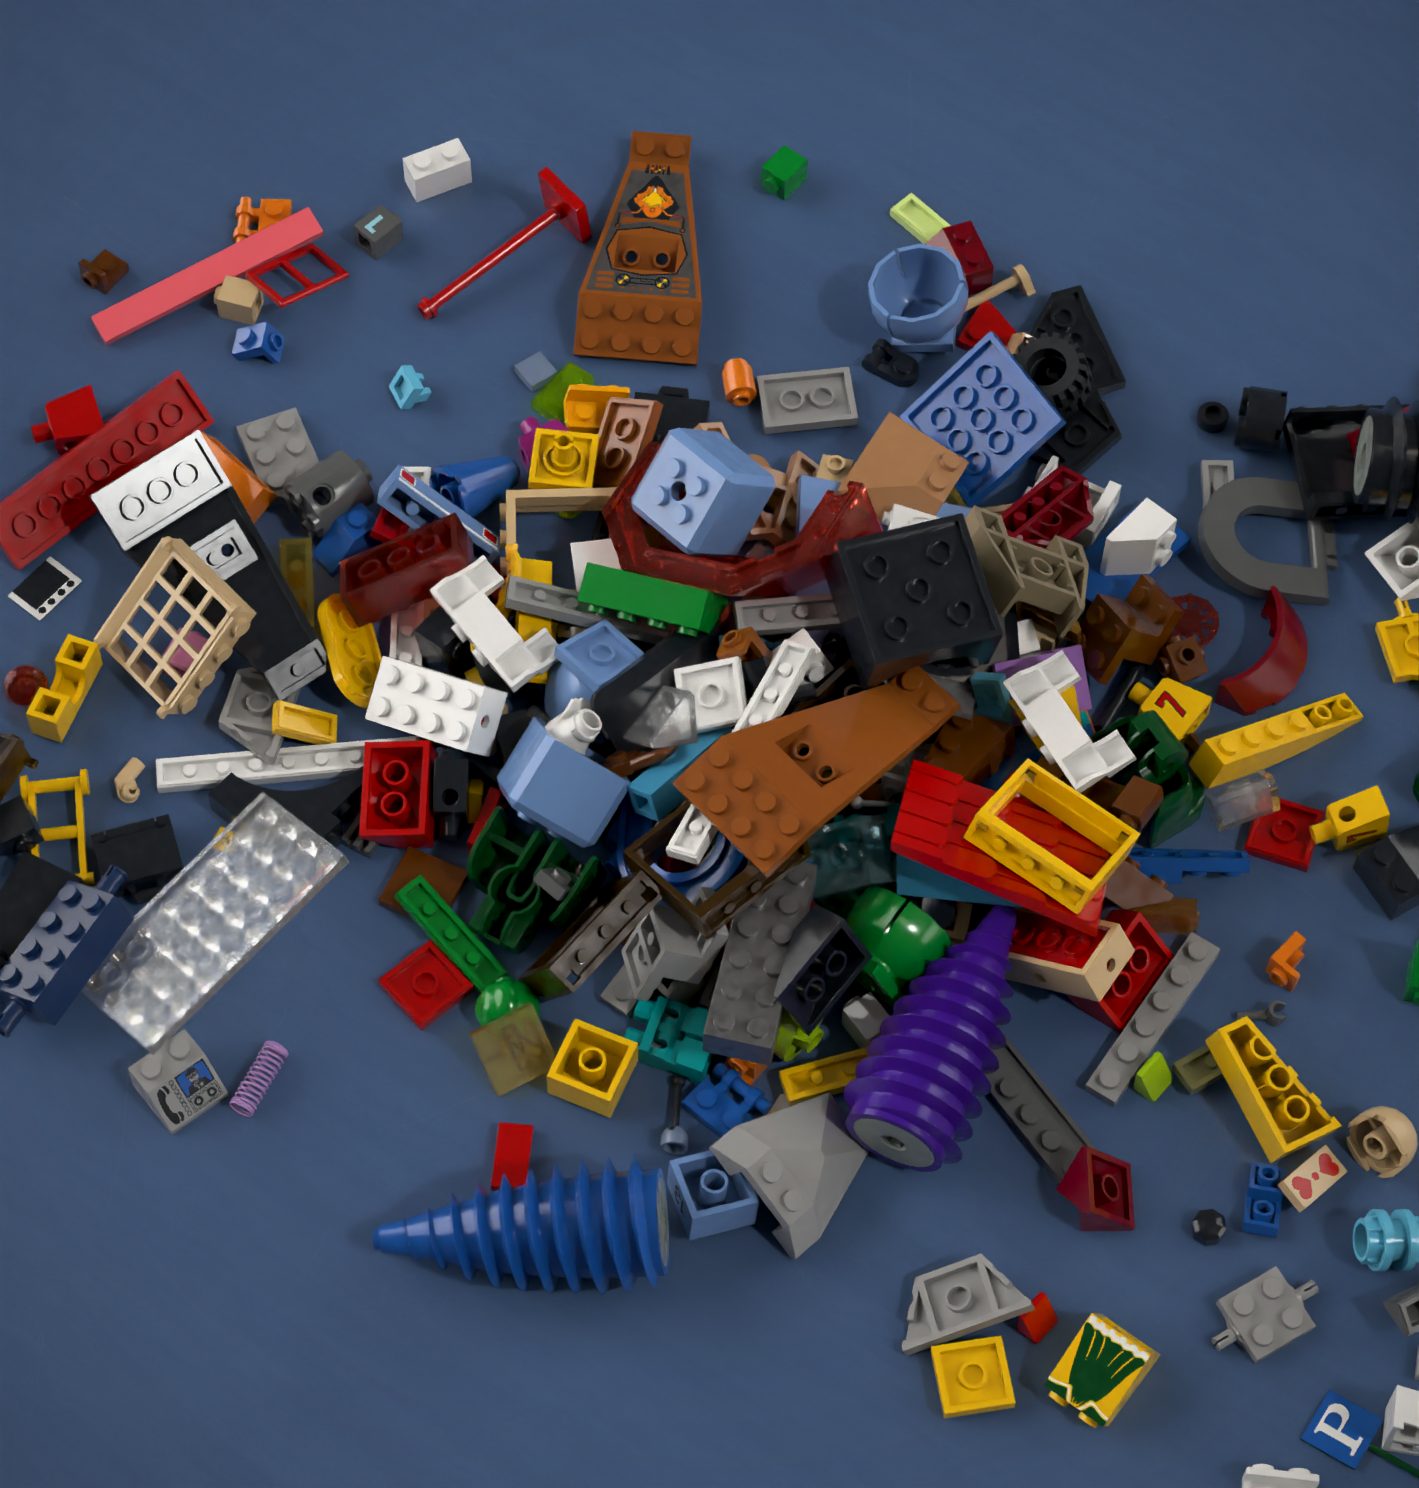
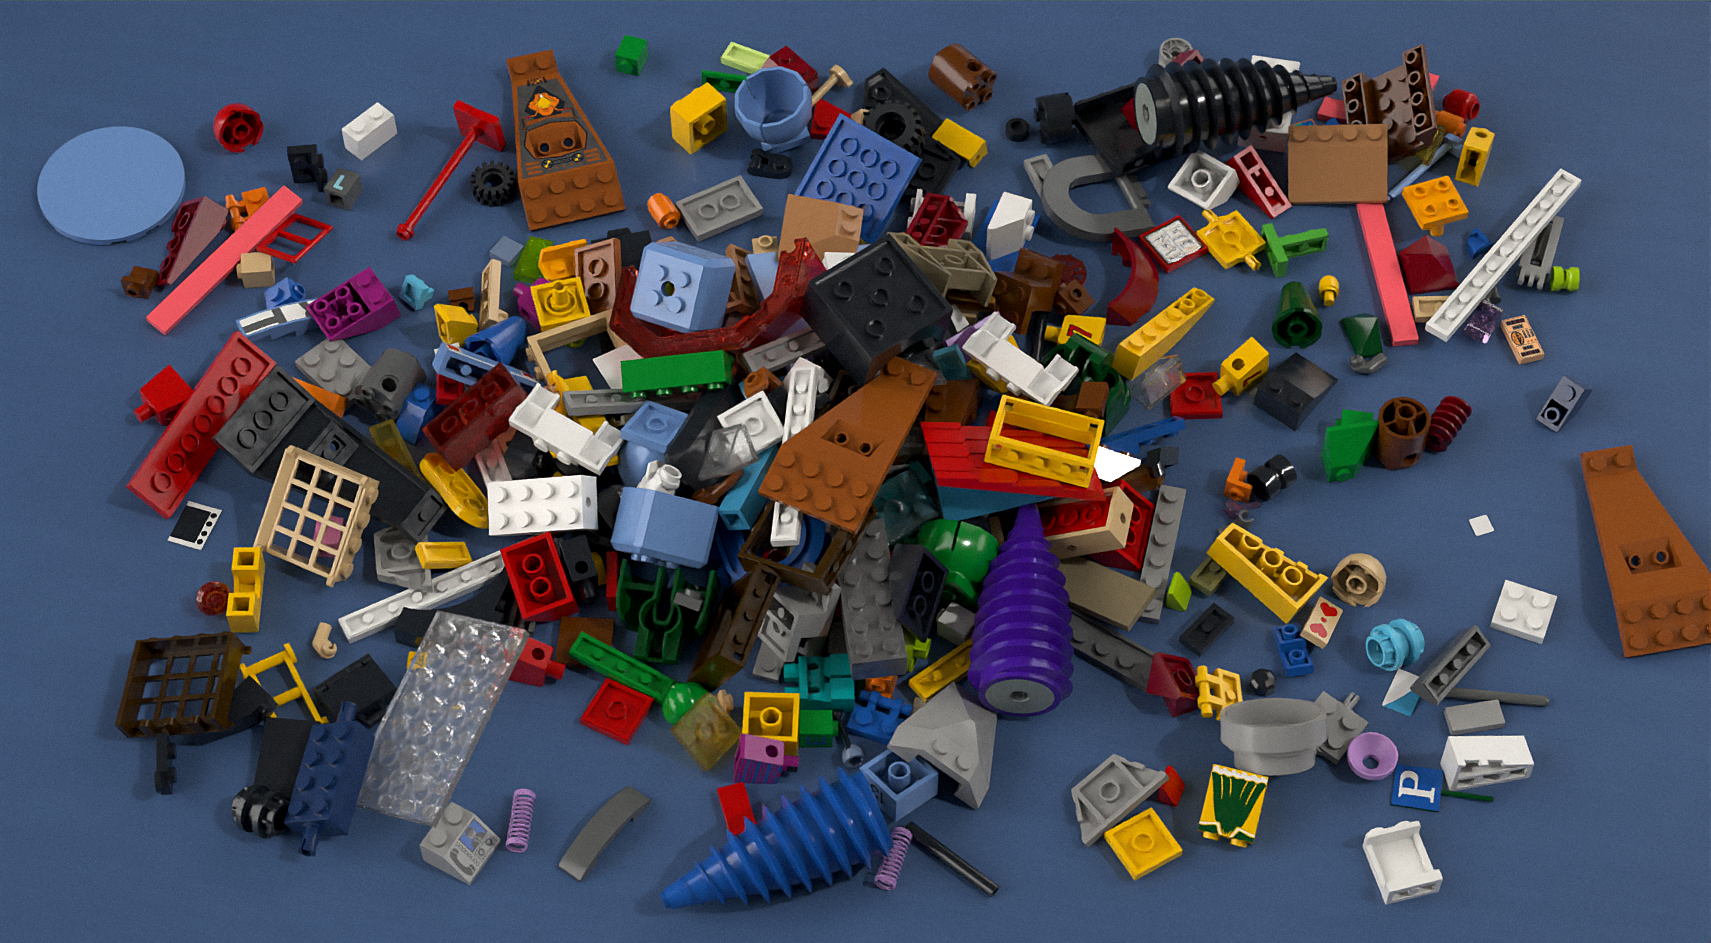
camera: 20 degrees left, 5 degrees down
(120, 141) = (111, 185): none -> medium blue tile
(191, 225) = (194, 229): none -> wedge
(250, 371) = (278, 321): none -> slope
(287, 116) = (237, 127): none -> red cylinder
(328, 384) = (354, 307): none -> magenta slope
(346, 190) = (307, 165): none -> black bracket
(346, 1124) = (601, 831): none -> dark grey slope
(352, 895) = (536, 664): none -> red torso
(435, 443) = (454, 324): none -> yellow slope
(456, 410) = (462, 295): none -> reddish brown tile
(483, 442) = (490, 296): none -> tan hinge
(550, 268) = (493, 173): none -> black tyre
(551, 1019) = (724, 700): none -> tan plate
(563, 1108) = (761, 760): none -> magenta torso
(646, 1091) = (817, 728): none -> green brick
(649, 1306) = (890, 880): none -> lavender piece
(737, 1310) = (952, 859): none -> black piece
(827, 279) = (698, 118): none -> yellow brick
(877, 239) = (722, 81): none -> green slope
(1057, 1042) = (1105, 592): none -> dark tan tile
(1133, 412) = (961, 142): none -> yellow hinge
(1155, 1229) = (1225, 688): none -> yellow plate
(1167, 1136) = (1206, 630): none -> black plate
(1169, 328) = (962, 76): none -> reddish brown cylinder
(1182, 1301) = (1273, 734): none -> light grey wheel
(1202, 900) = (1161, 458): none -> black piece
(1268, 994) = (1234, 509): none -> clear purple hand
(1301, 1355) = (1372, 746): none -> lavender piece
(1336, 970) = (1272, 477): none -> black wheel
(1342, 628) = (1173, 244): none -> tile
(1369, 1306) = (1399, 695): none -> sticker

